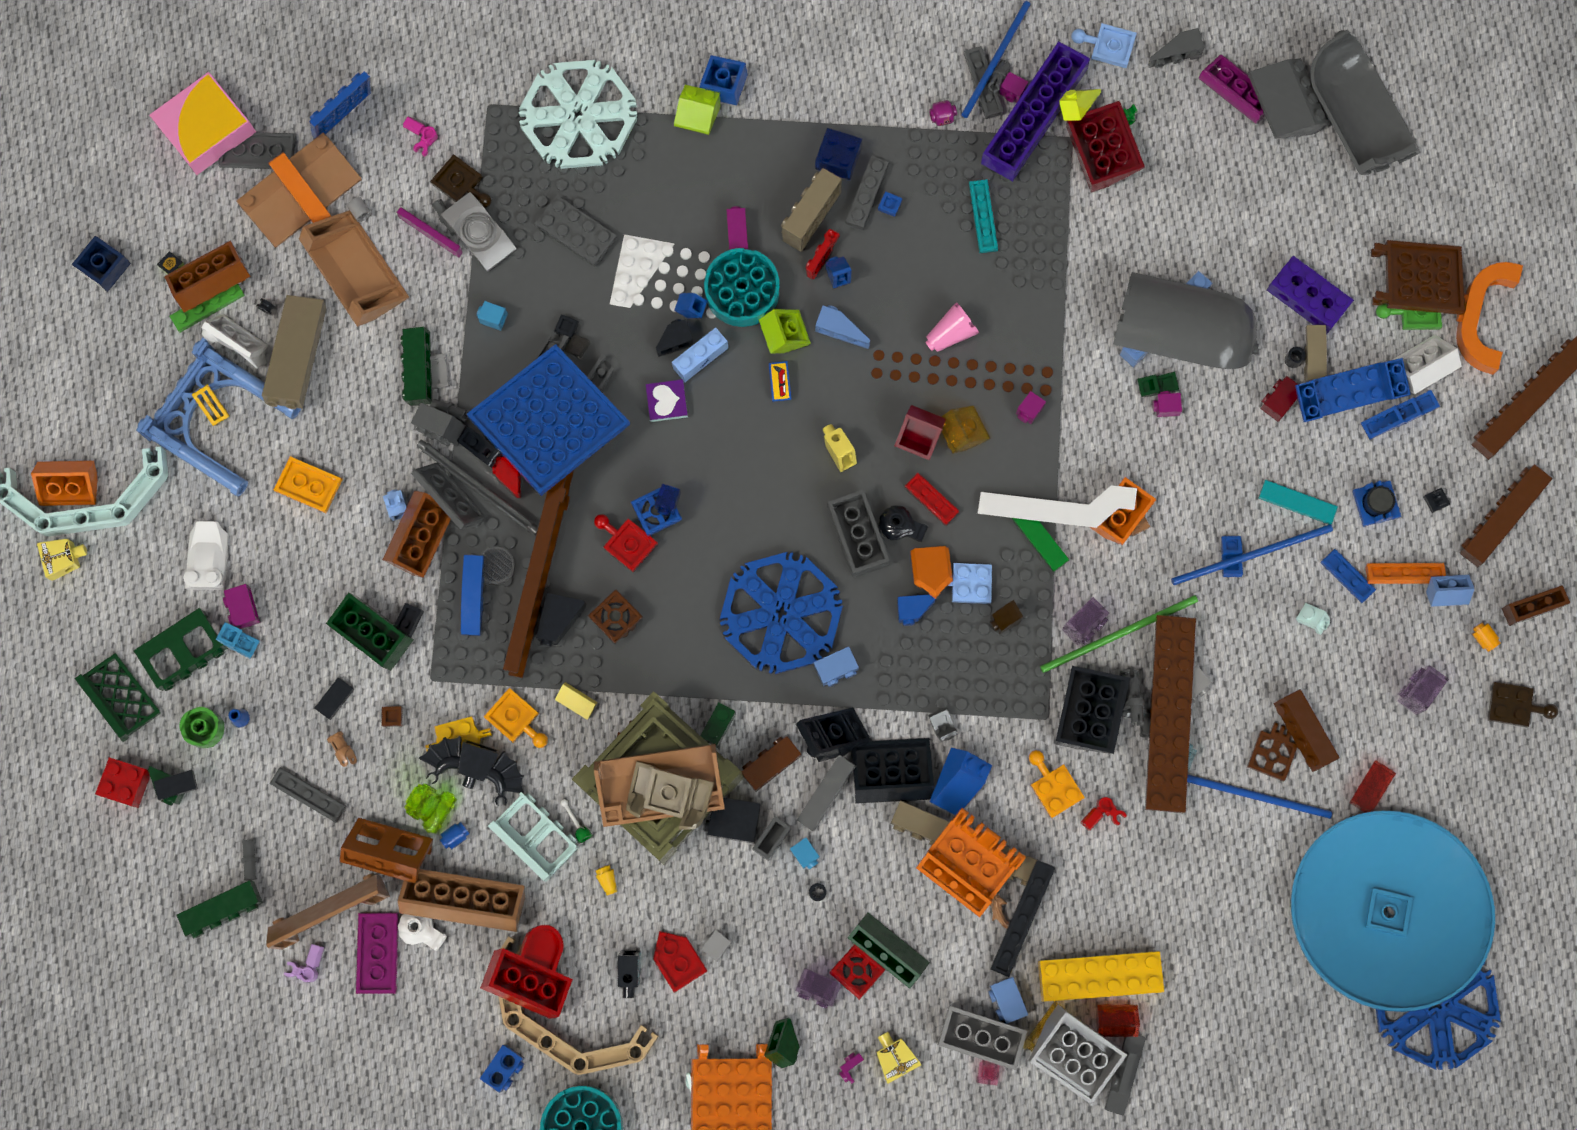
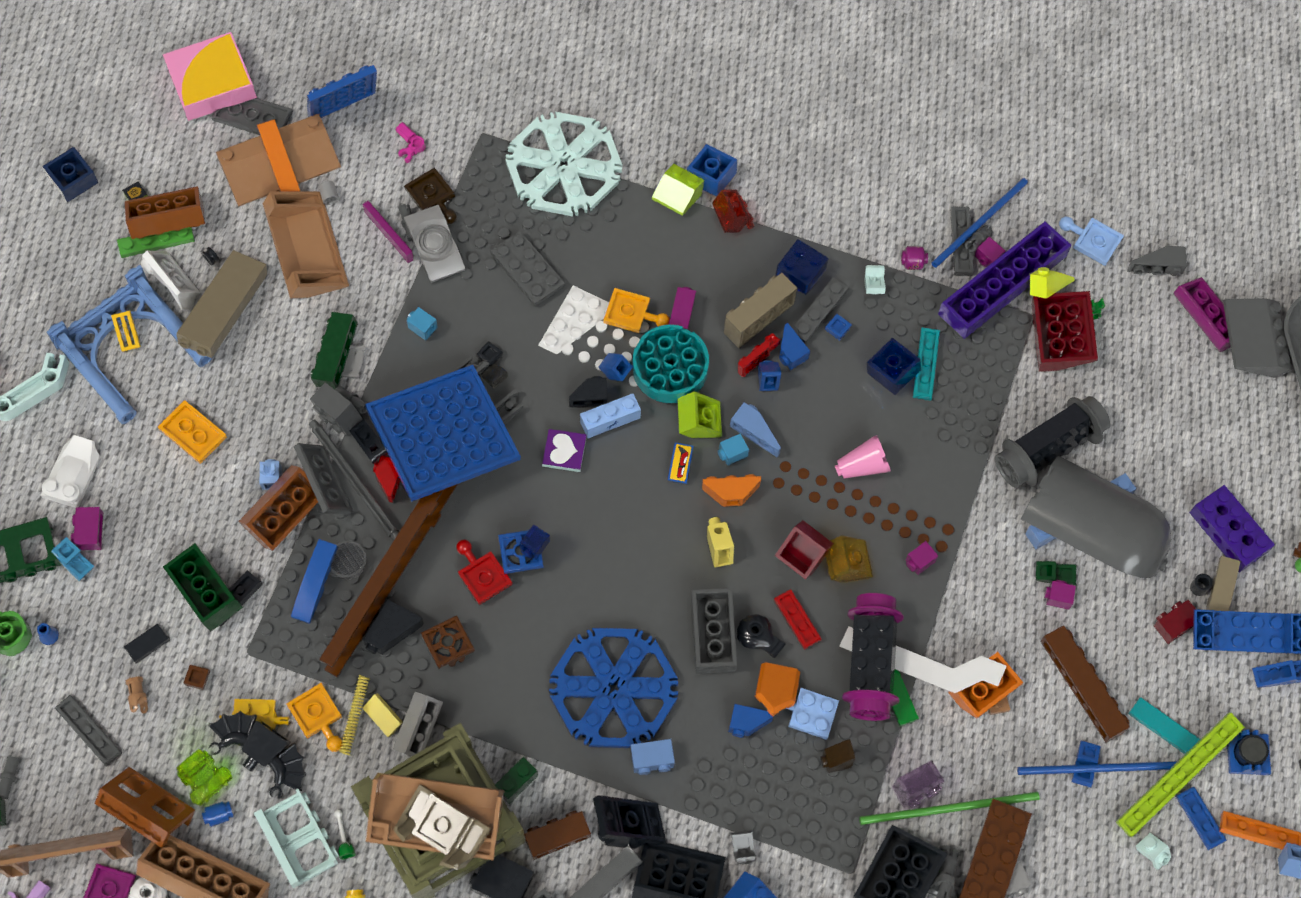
camera: 10 degrees right, 10 degrees down
(550, 718) = (344, 748): none -> light yellow piece
(612, 701) = (417, 724): none -> light grey brick
(686, 246) = (629, 310): none -> light orange plate
(756, 117) = (732, 211): none -> clear red brick
(825, 354) = (733, 449): none -> dark azure brick
(835, 393) = (731, 489): none -> orange slope
(853, 239) = (793, 349): none -> blue slope
(911, 147) = (874, 279): none -> light aqua bracket
(954, 228) = (893, 366): none -> clear blue brick
(1012, 515) = (873, 657): none -> brick
(1143, 234) = (1059, 435): none -> brick
(1212, 482) = (1085, 683): none -> reddish brown brick
(1320, 541) = (1180, 774): none -> lime plate

